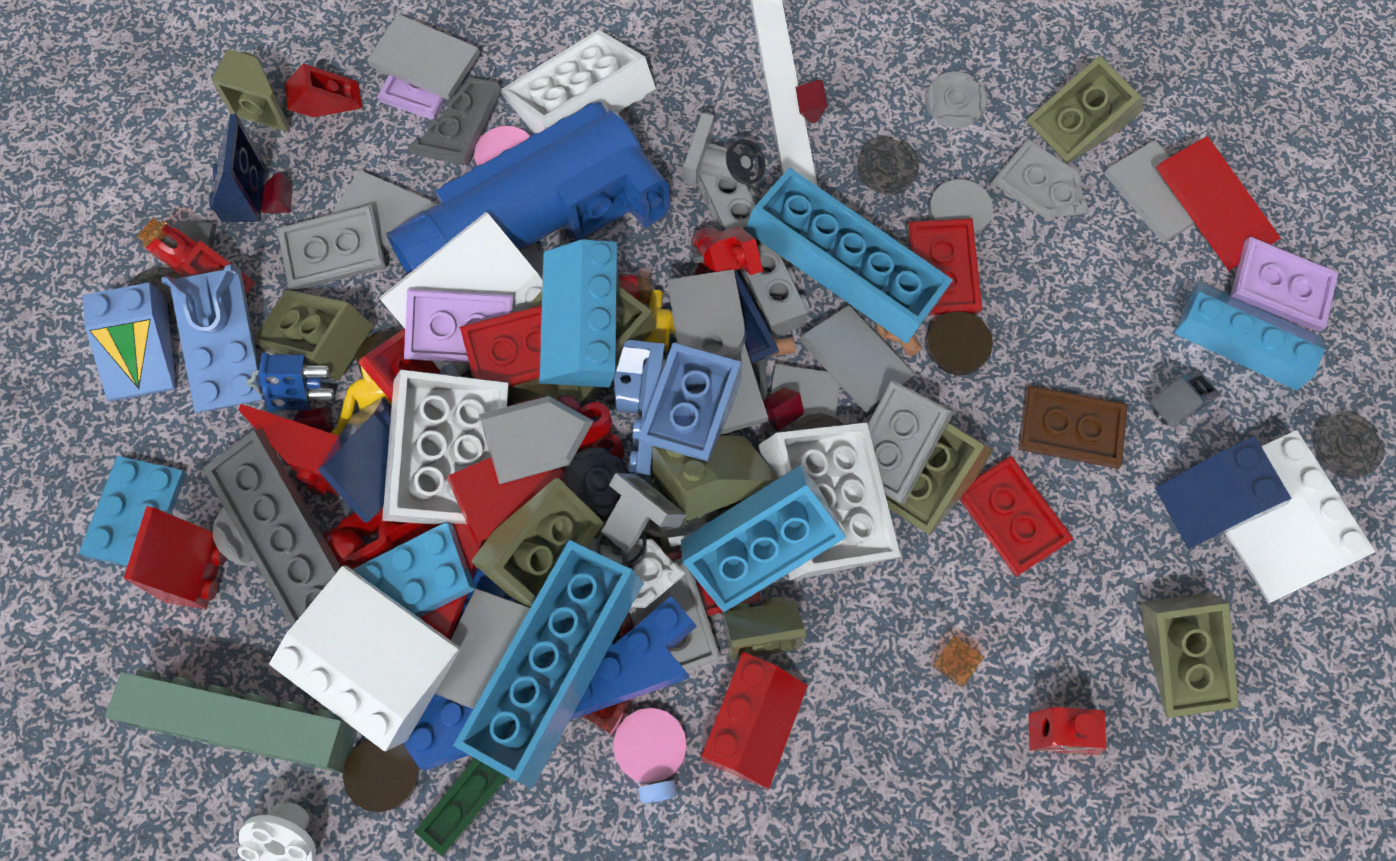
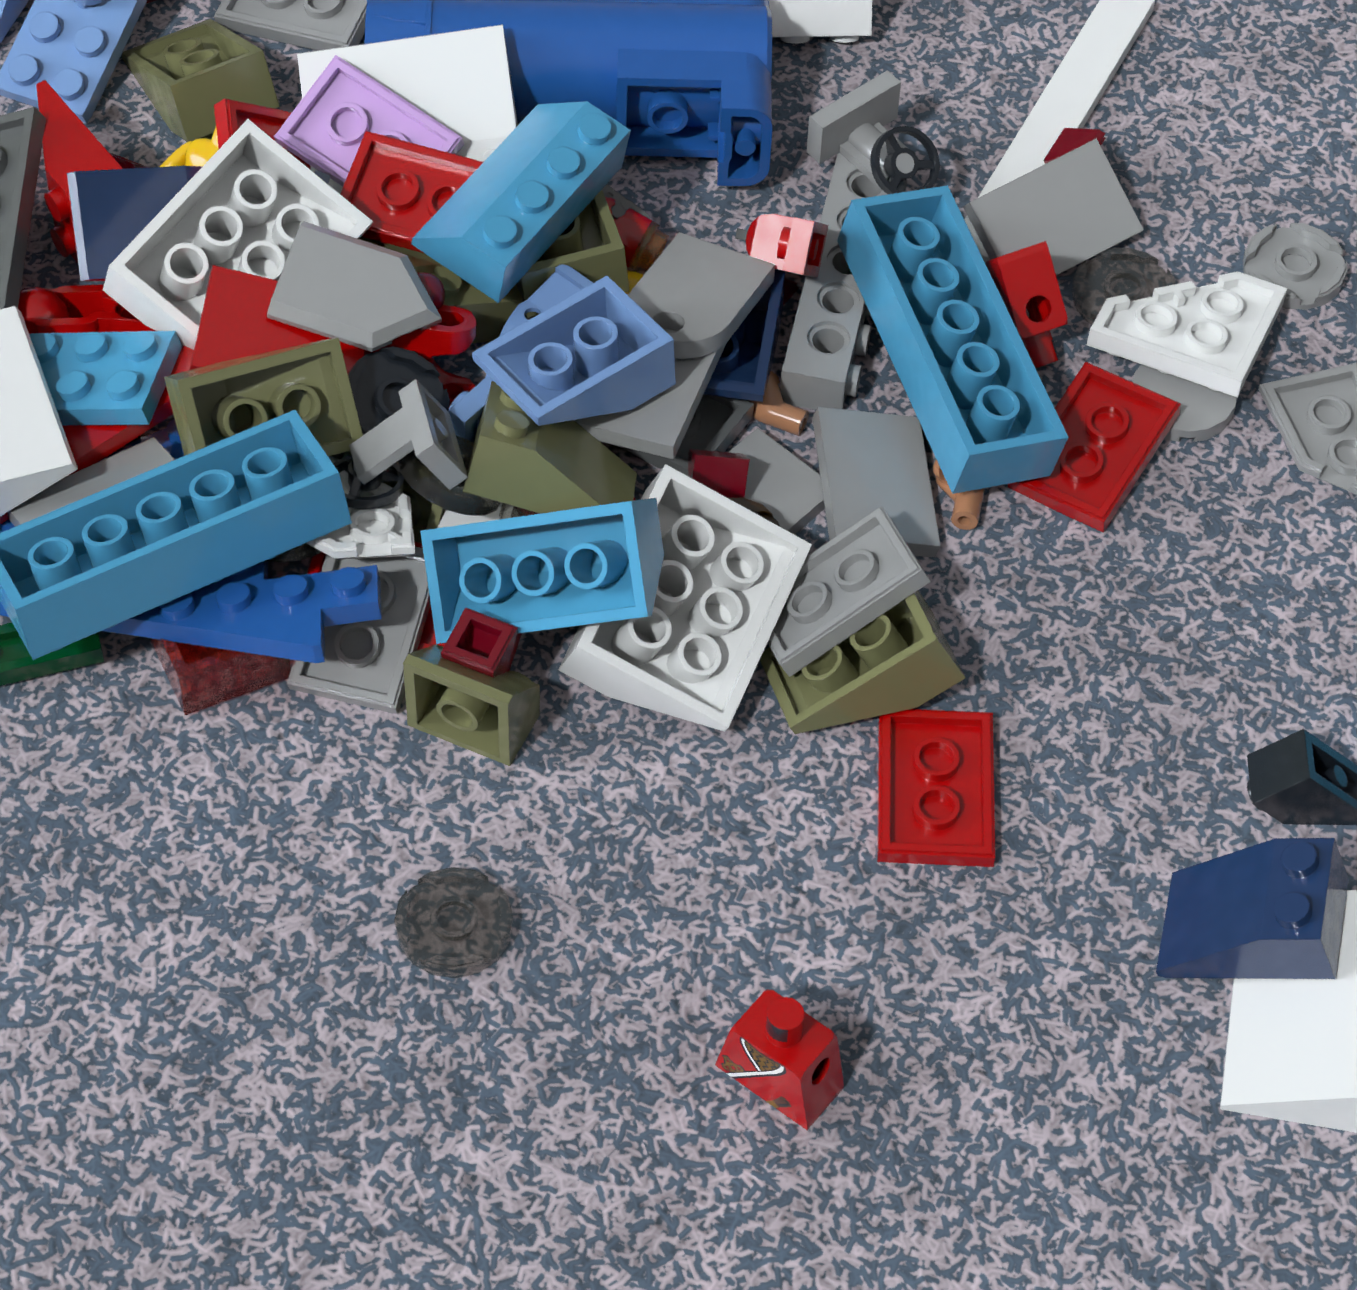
camera: 35 degrees right, 15 degrees down
(289, 382) = (123, 106): blue piece -> none
(649, 745) = (224, 750): bright pink tile -> none
(657, 792) = (188, 796): light blue tile -> none
(754, 721) = (374, 794): red slope -> none
(756, 604) = (481, 643): none -> dark red slope
(832, 144) = (1066, 202): none -> light grey tile
(836, 772) = (454, 941): none -> clear smoke tile
(862, 196) = (1030, 282): none -> red torso
(946, 169) = (1193, 331): none -> white plate
(958, 661) = (703, 897): clear orange plate -> none
(959, 343) = (1038, 547): dark brown tile -> none
(1073, 427) = (1116, 735): reddish brown tile -> none
(1191, 653) = (1039, 1084): olive slope -> none

